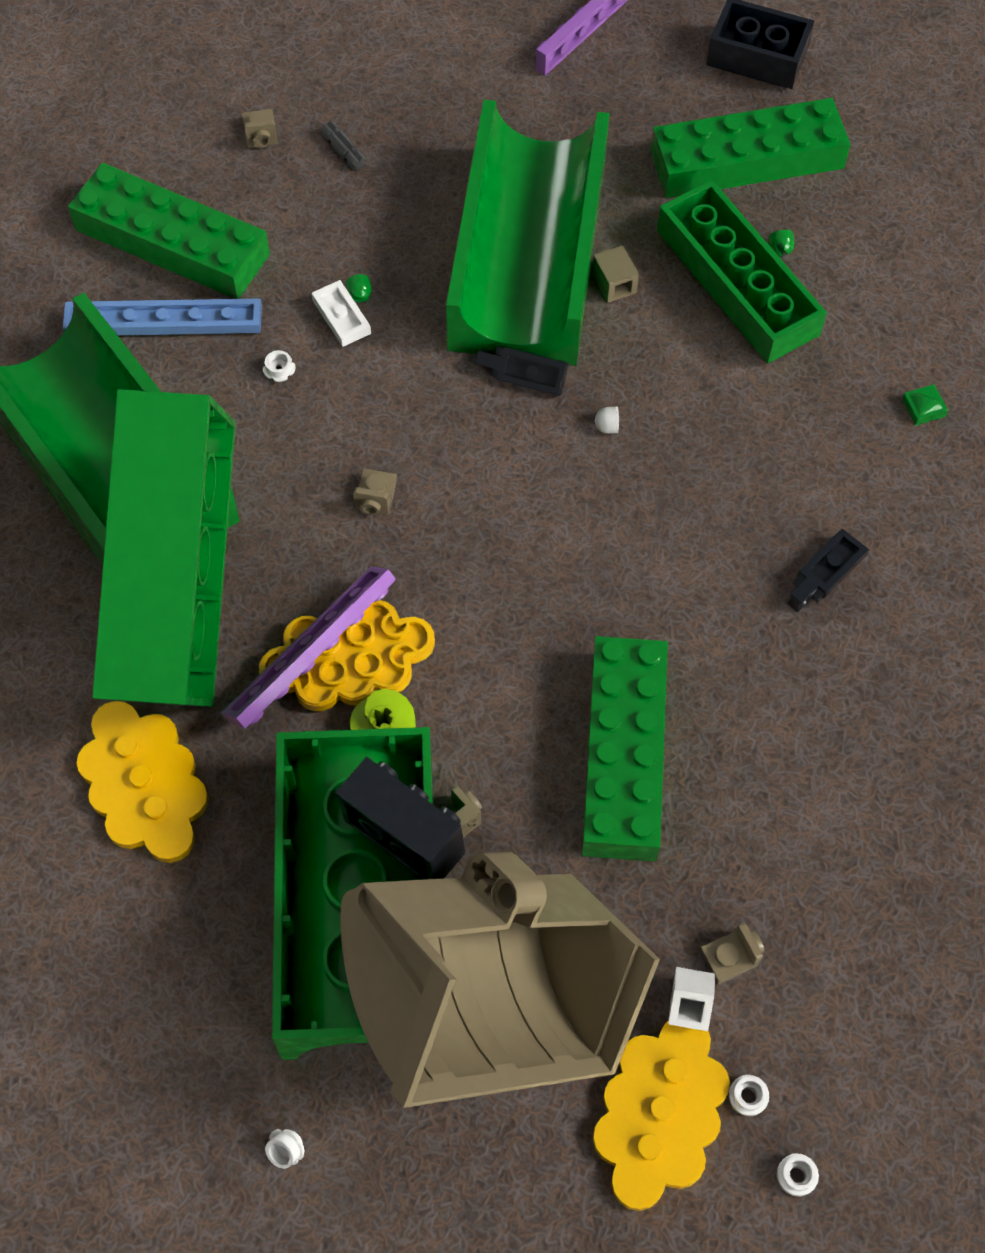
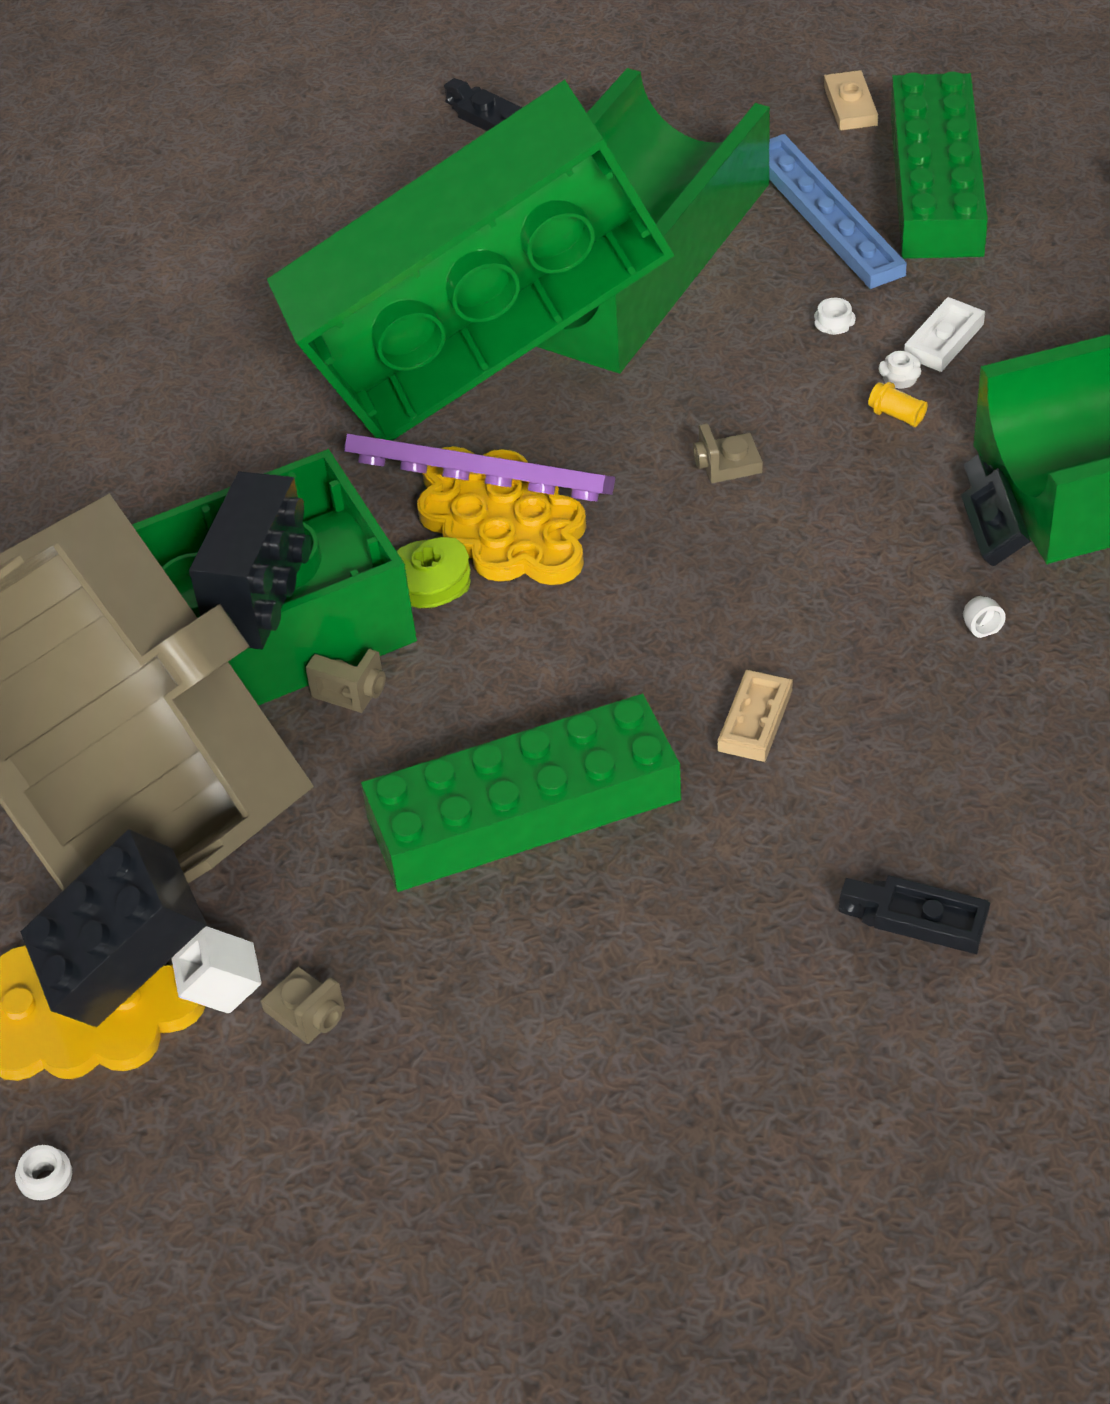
camera: 70 degrees right, 15 degrees down
(47, 245) = (850, 100): none -> tan plate
(142, 781) = (260, 426): yellow plate -> none
(355, 361) = (900, 369): none -> white plate
(359, 287) = (991, 333): green hinge -> none
(383, 375) = (897, 404): none -> yellow pin
(624, 583) = (755, 715): none -> tan plate
(662, 1049) = (112, 928): none -> black brick
(754, 1084) = (121, 1074): white plate -> none

